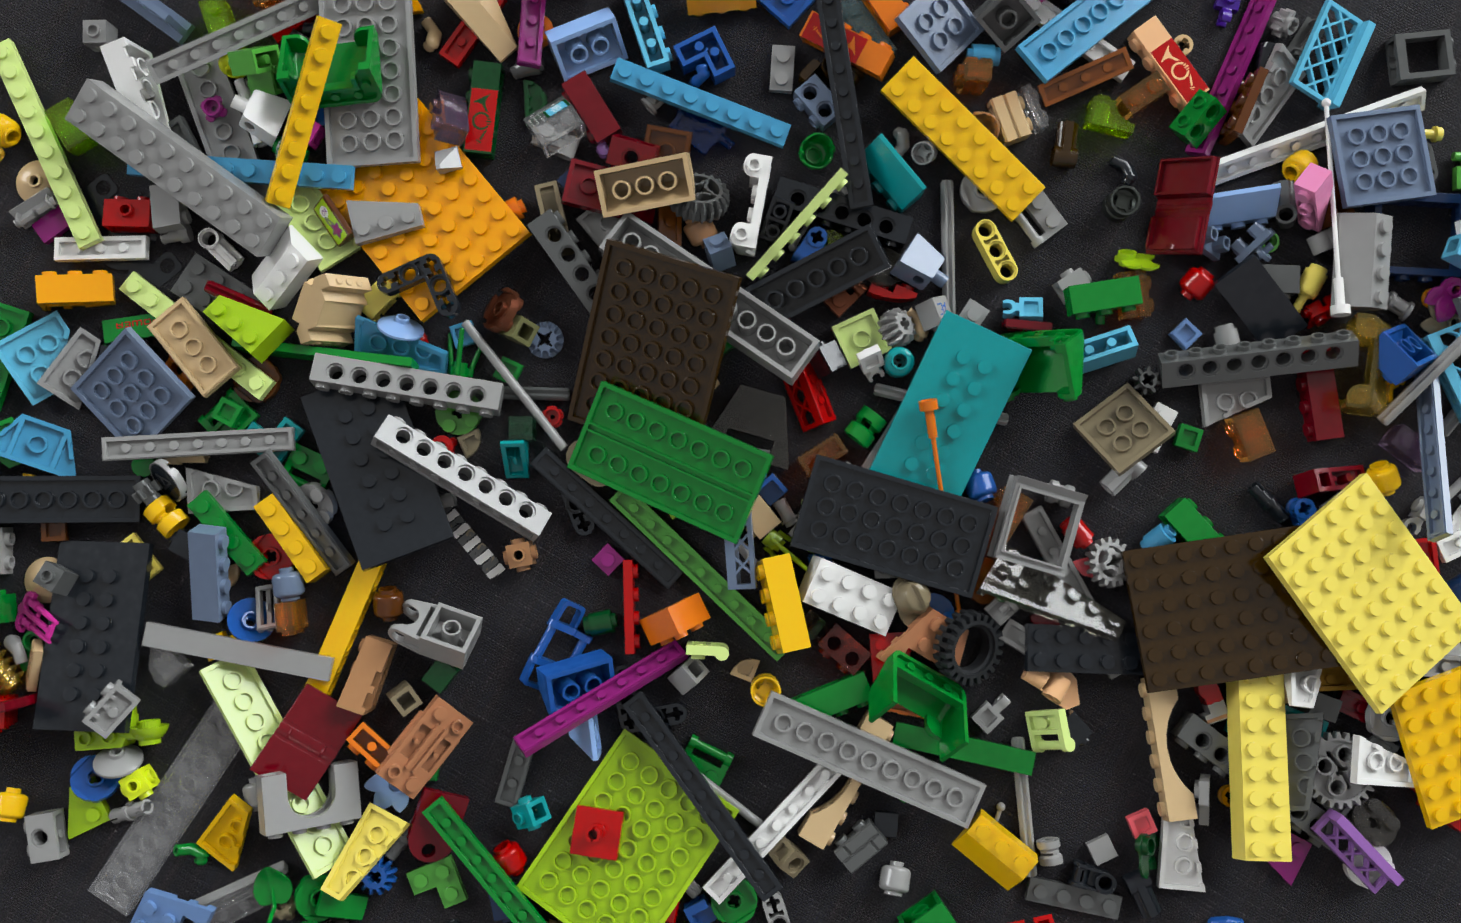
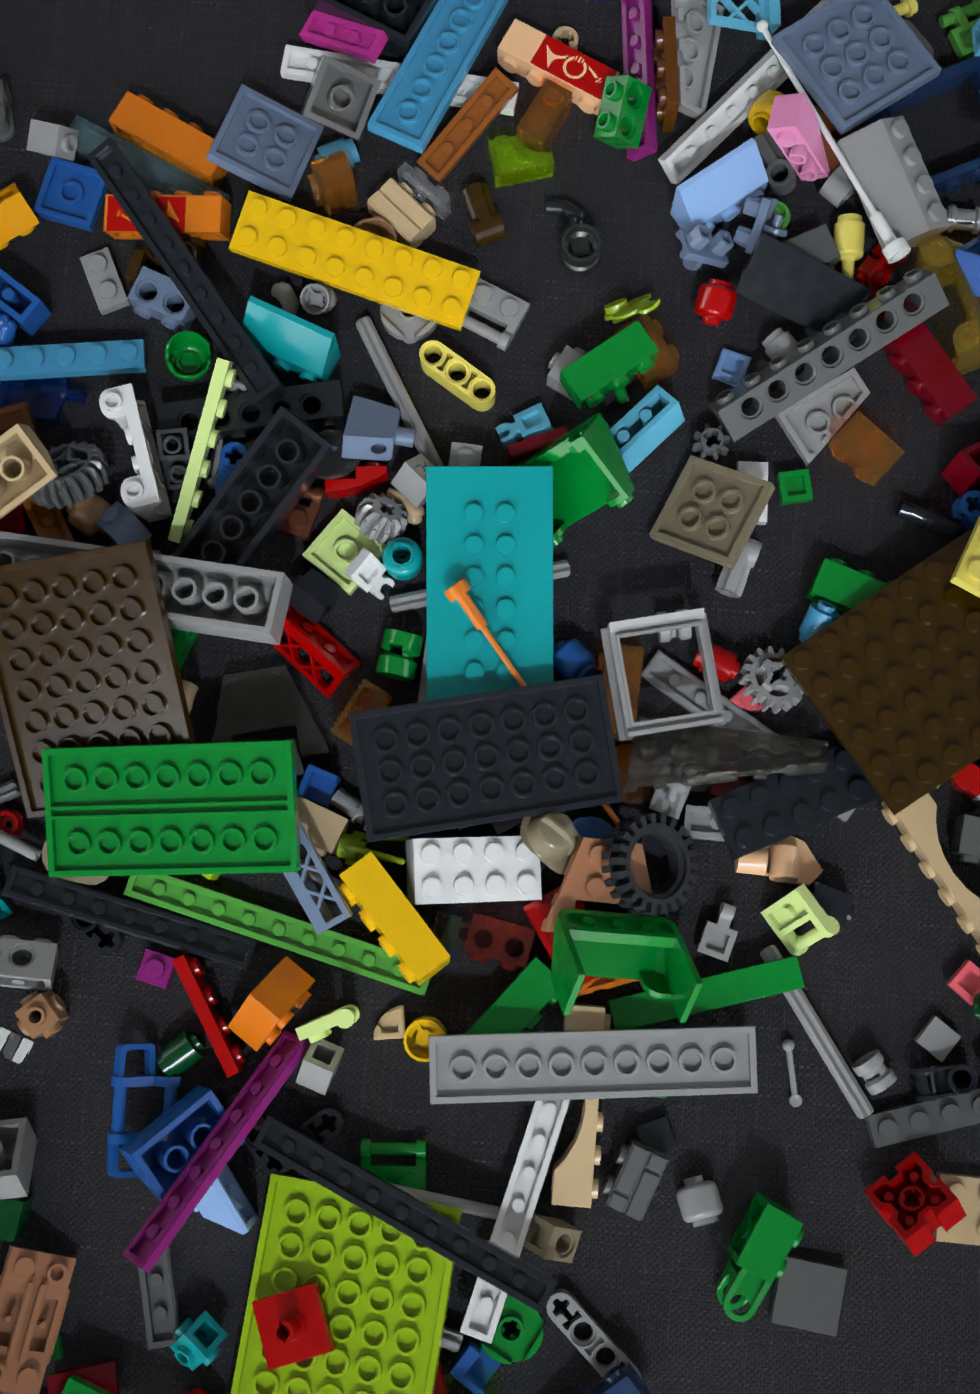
camera: 20 degrees left, 5 degrees down
(996, 850) = (807, 1103): yellow slope -> none
(1183, 205) = (654, 218): dark red piece -> none

